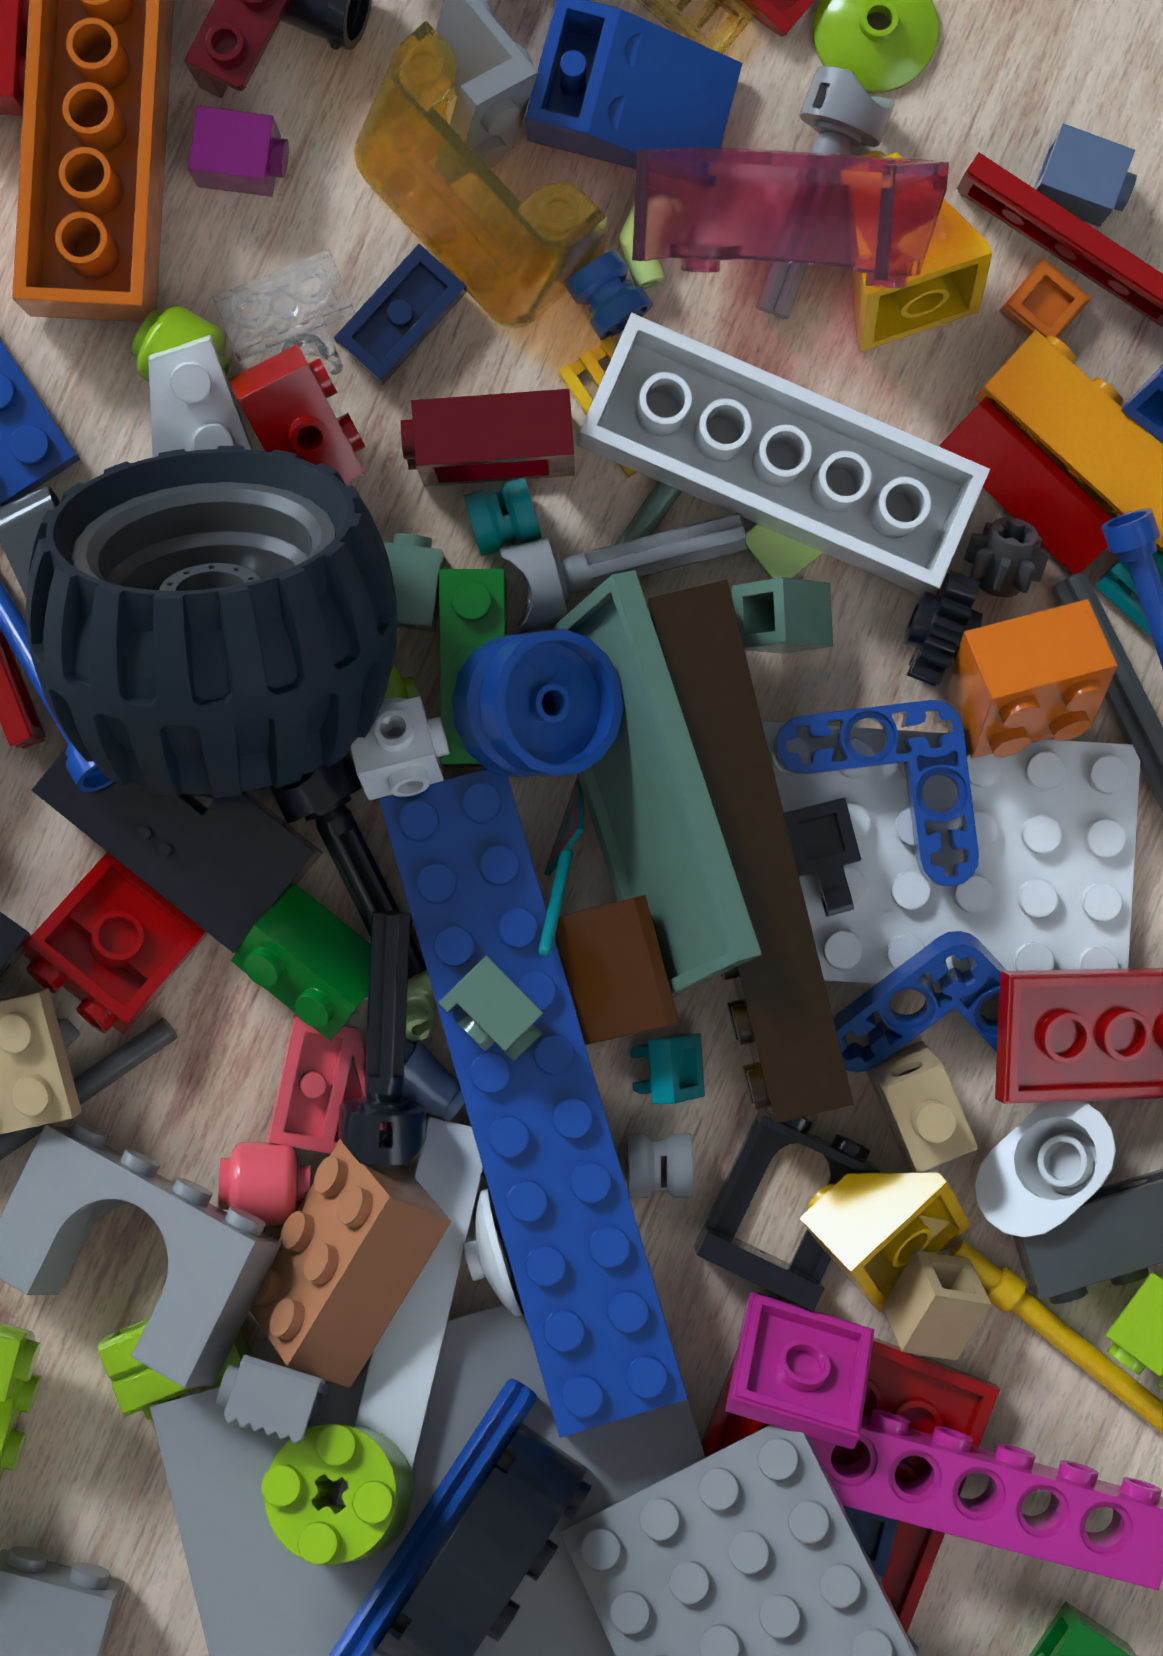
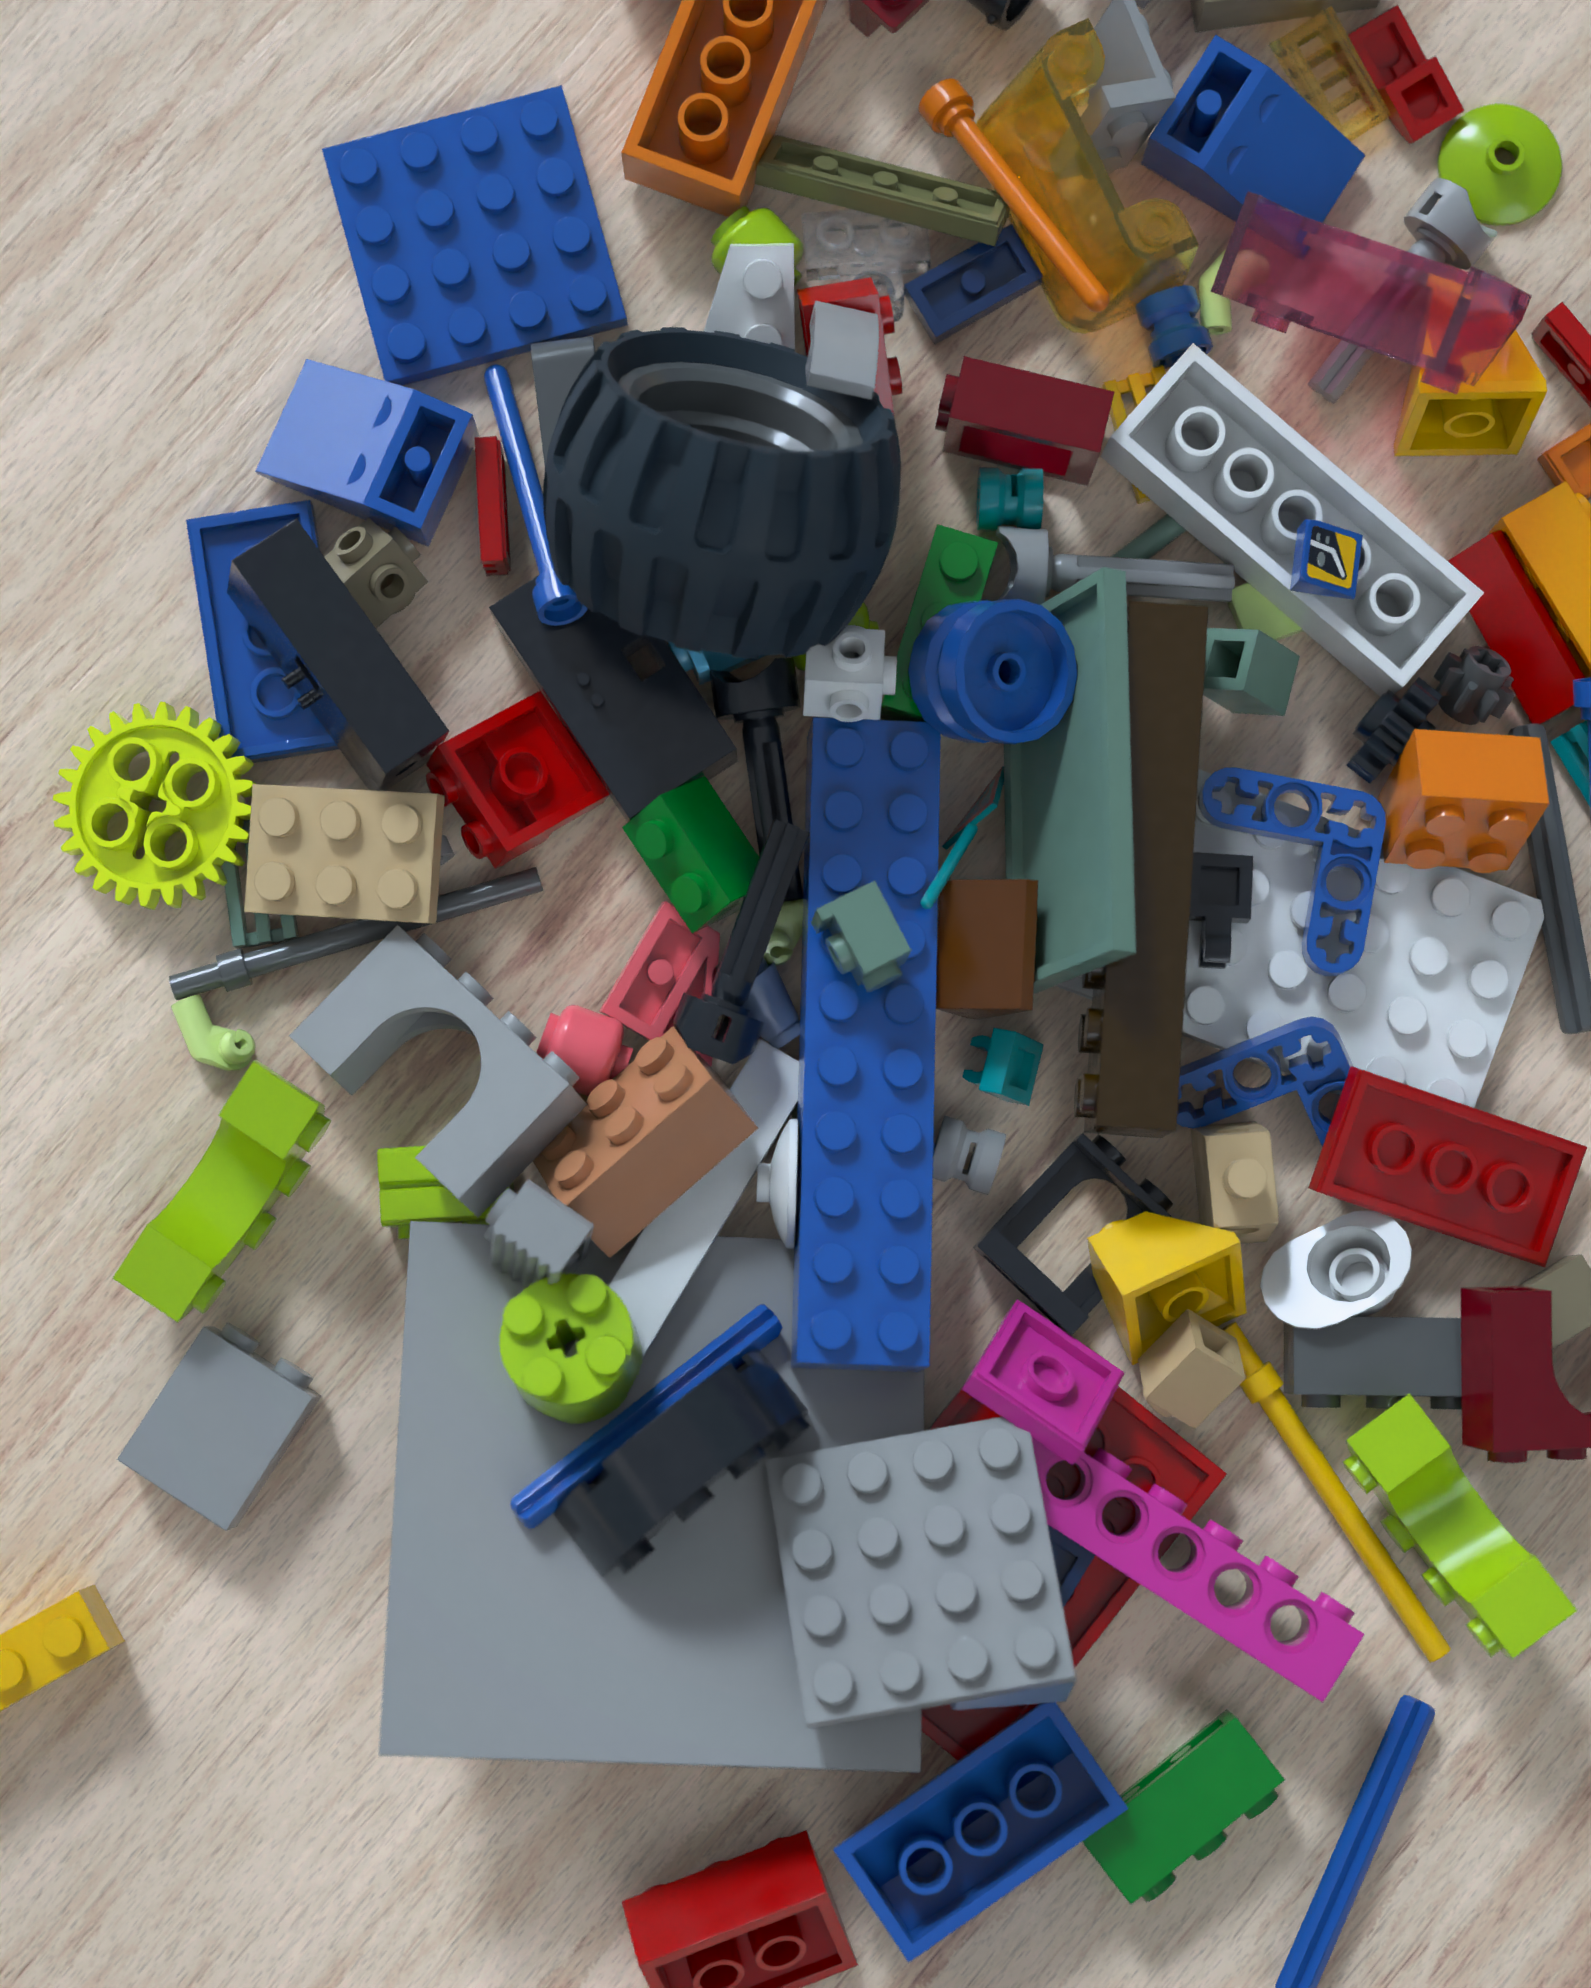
camera: 15 degrees right, 5 degrees down
(237, 151) = (868, 88): magenta brick -> none
(284, 249) = (882, 189): none -> olive tile
(288, 437) = (843, 350): none -> light grey slope
(324, 149) = (950, 112): none -> orange piece
(415, 580) = (913, 534): sand green brick -> none
(827, 489) = (1326, 560): none -> slope

